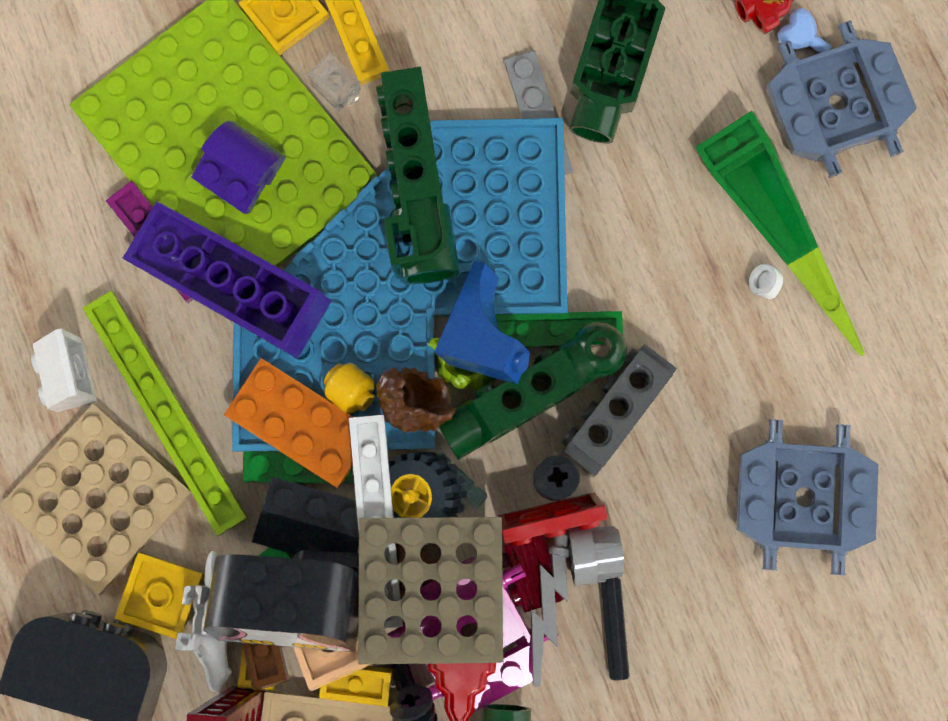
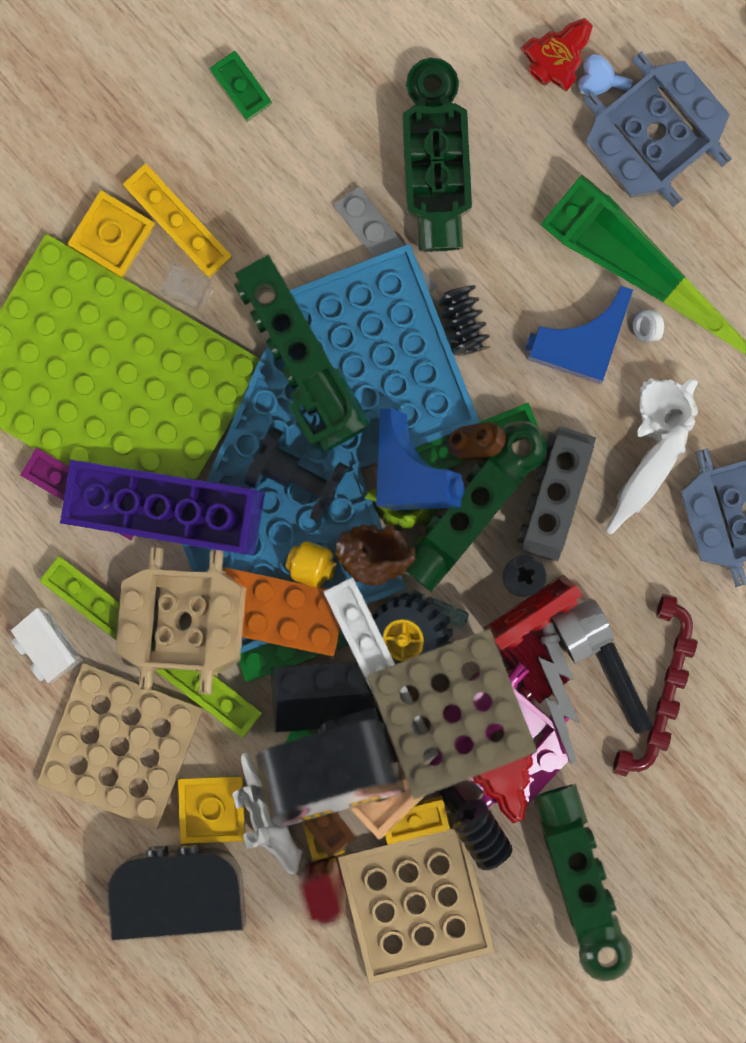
camera: 15 degrees left, 5 degrees up
(222, 425) = (216, 626): none -> tan piece
(237, 165) = (130, 399): dark purple brick -> none
(359, 283) = (285, 468): none -> black piece
(557, 327) = (476, 441): none -> reddish brown plate
(586, 211) = (463, 321): none -> black piece
(650, 663) = (666, 706): none -> dark red bar
(694, 279) = (582, 349): none -> blue arch
(715, 425) = (648, 476): none -> white animal
(756, 367) = (665, 406): none -> white hair

